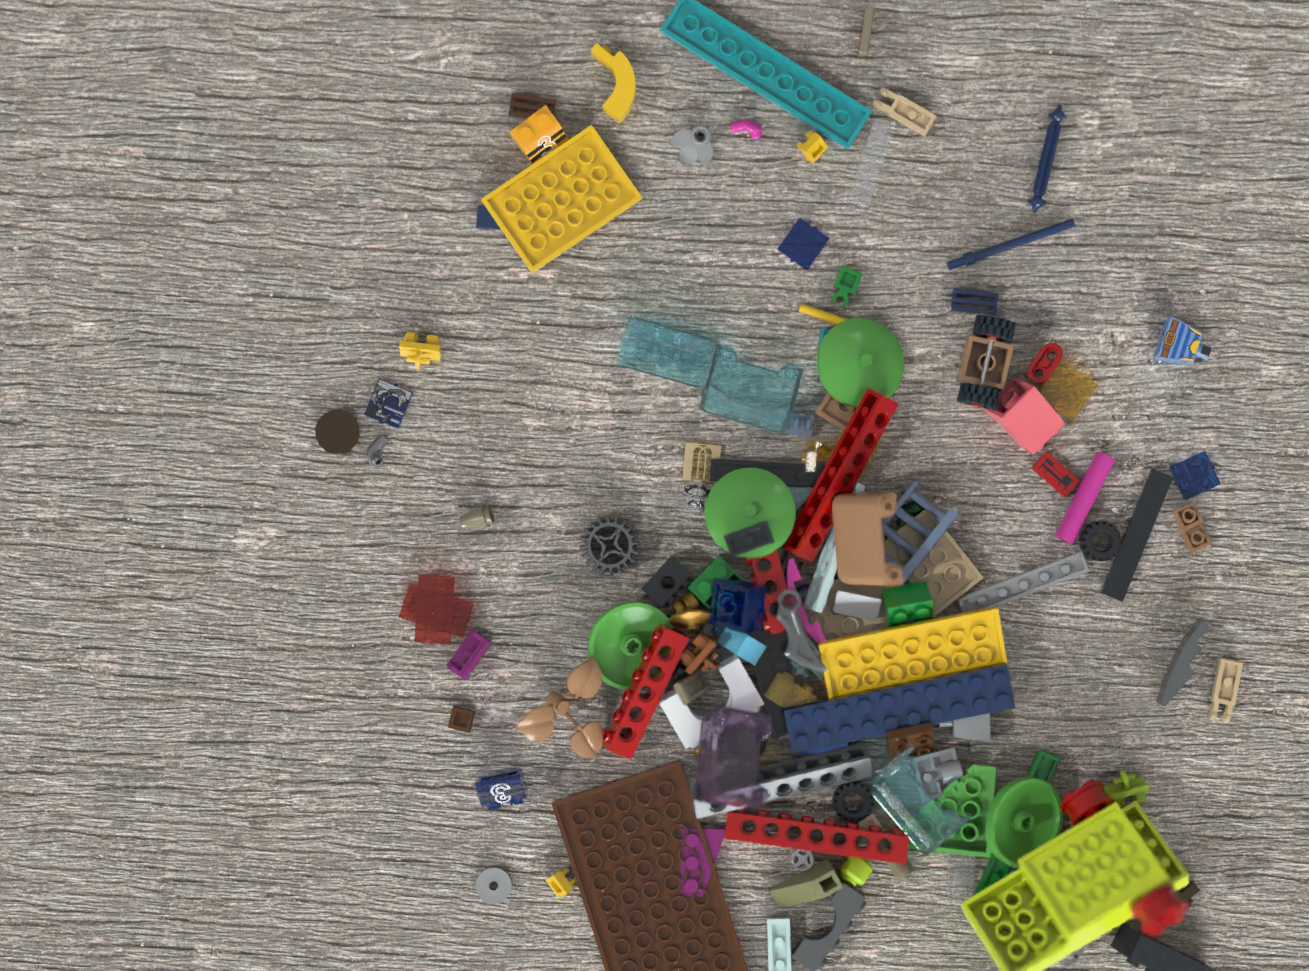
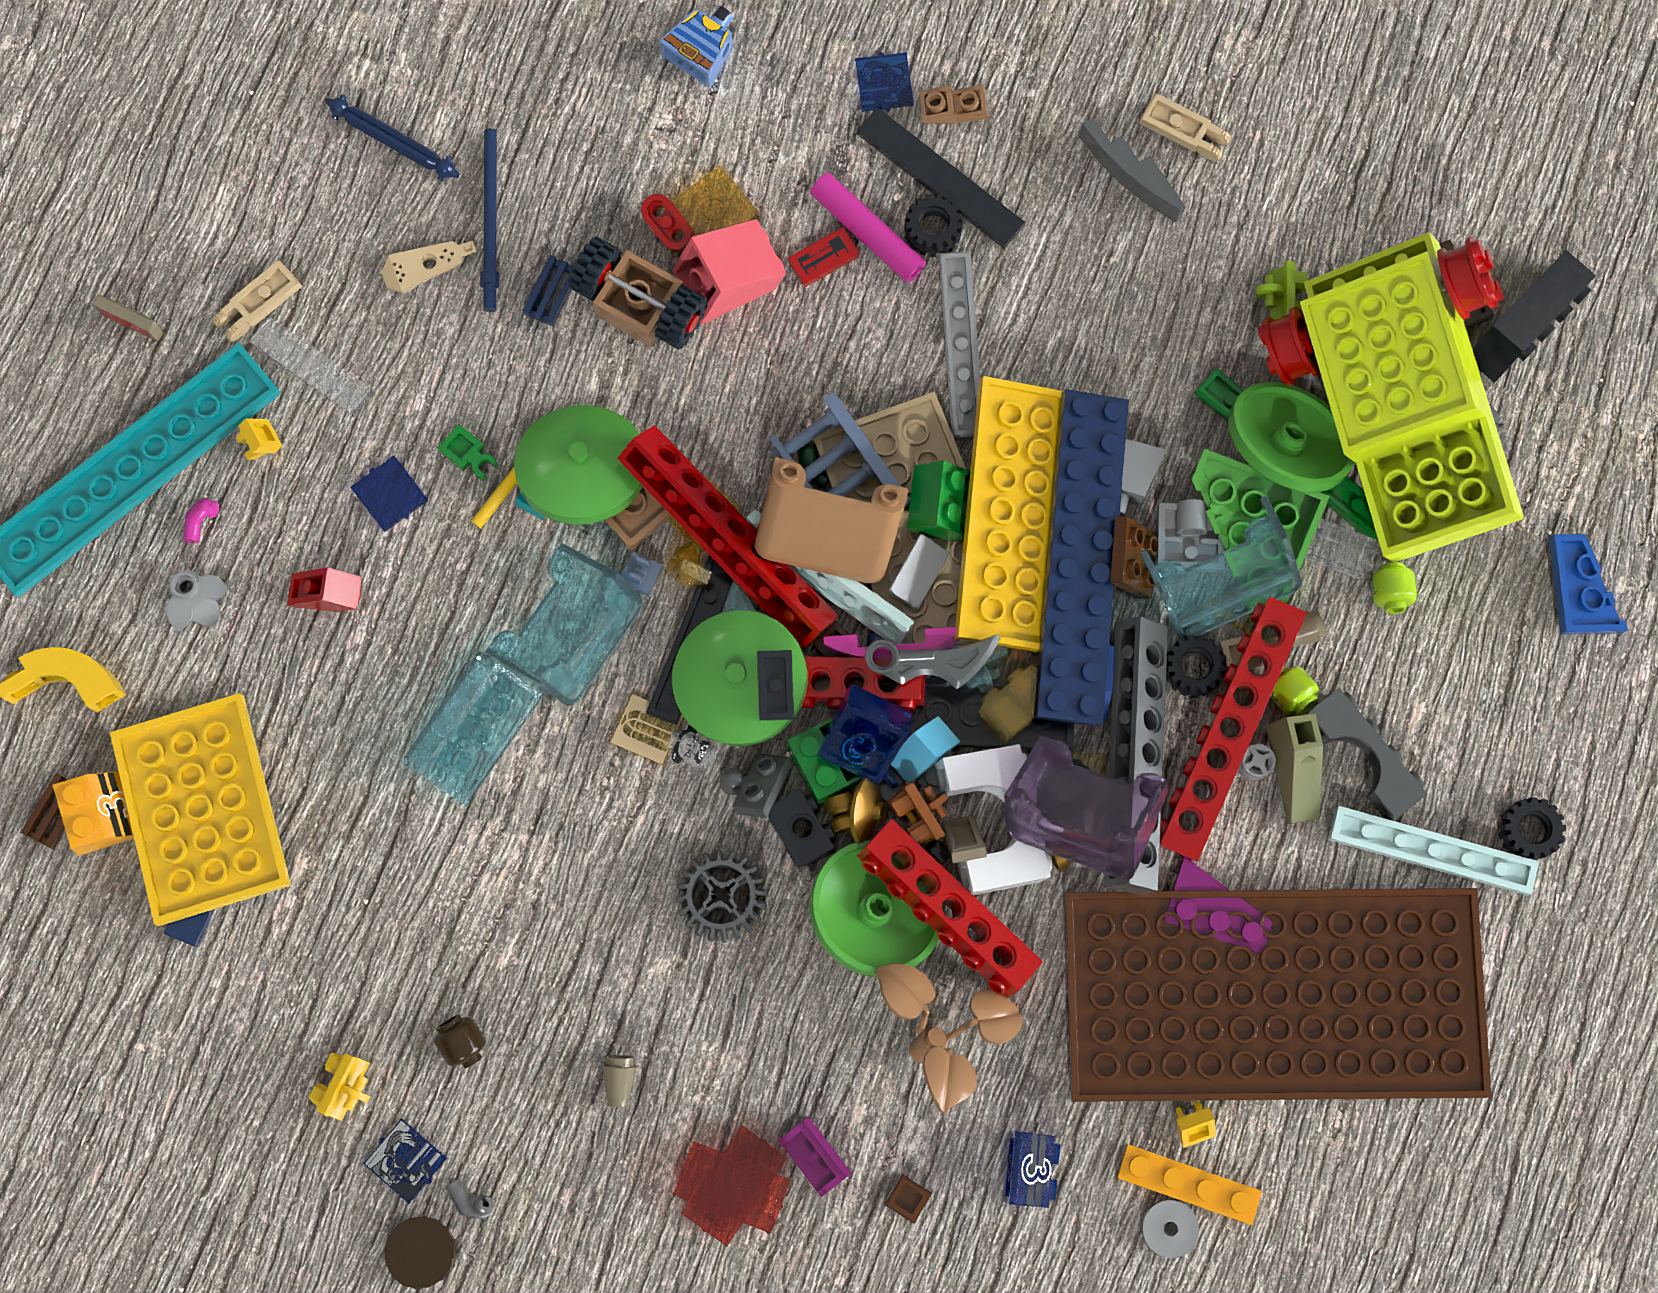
camera: 70 degrees left, 10 degrees down
(469, 412) = (459, 1041): none -> dark brown head
(524, 889) = (1189, 1184): none -> light orange plate
(686, 547) = (759, 788): none -> dark grey plate
(725, 226) = (324, 590): none -> red slope
(945, 916) = (1394, 587): none -> lime head
(963, 204) = (413, 264): none -> tan piece

